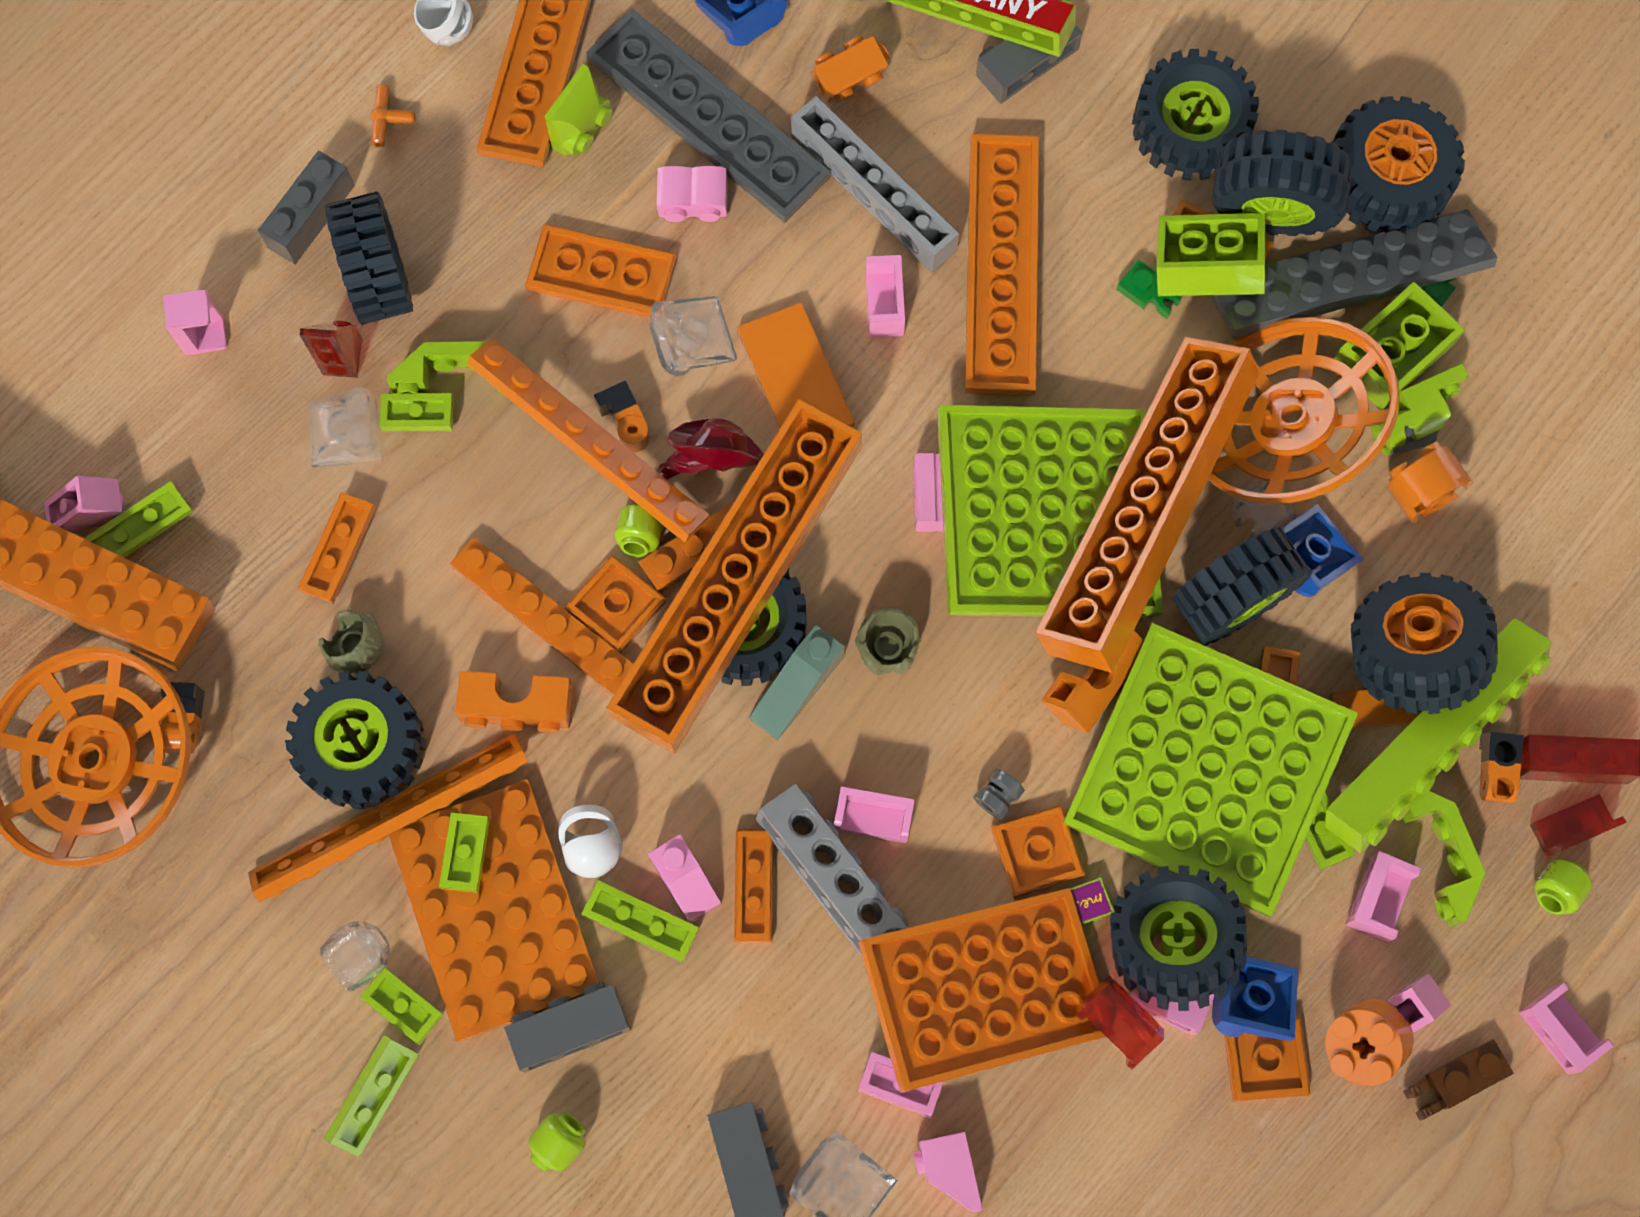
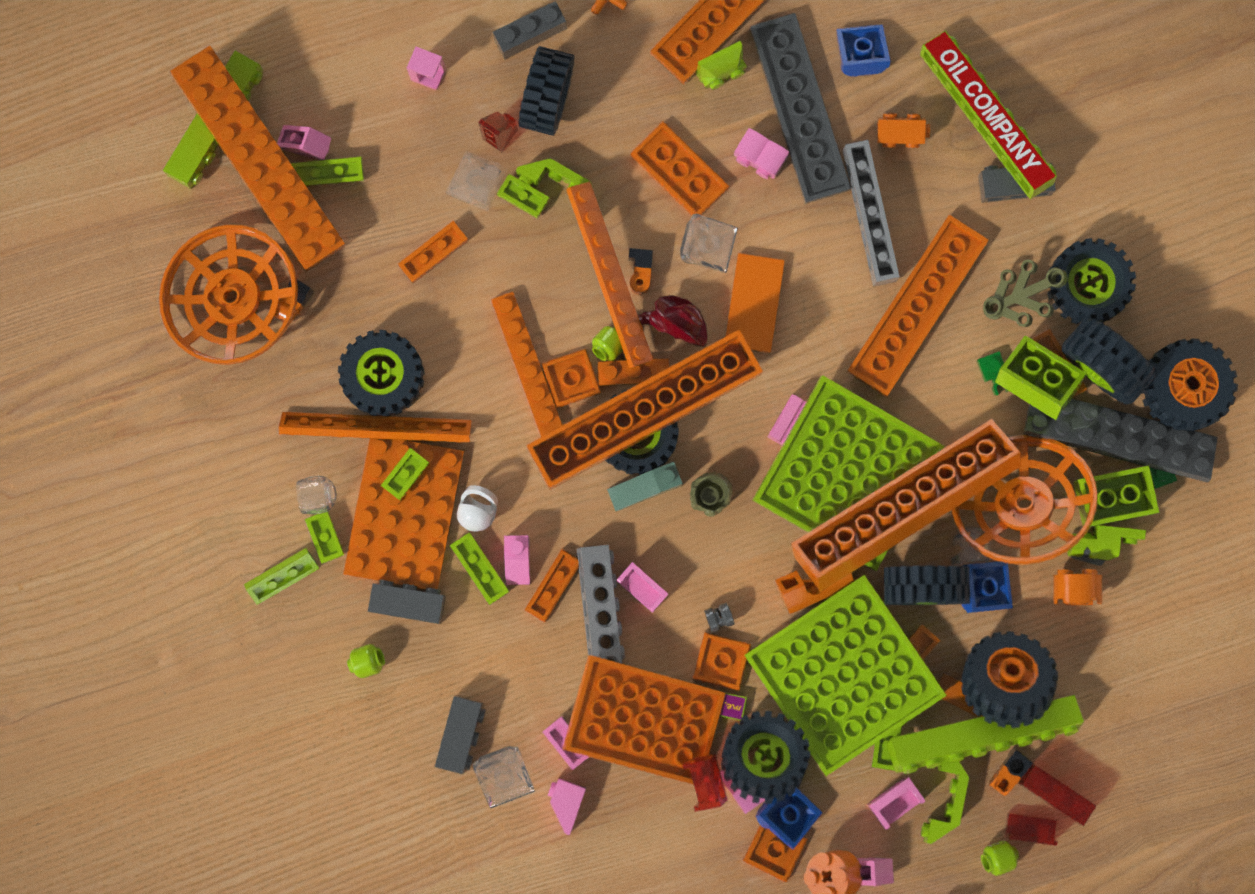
camera: 30 degrees right, 10 degrees up
(354, 644) = (411, 315): olive hair -> none
(545, 706) = (497, 416): orange arch -> none
(885, 296) = (835, 286): bright pink panel -> none
(1121, 173) = (1021, 294): none -> olive plant

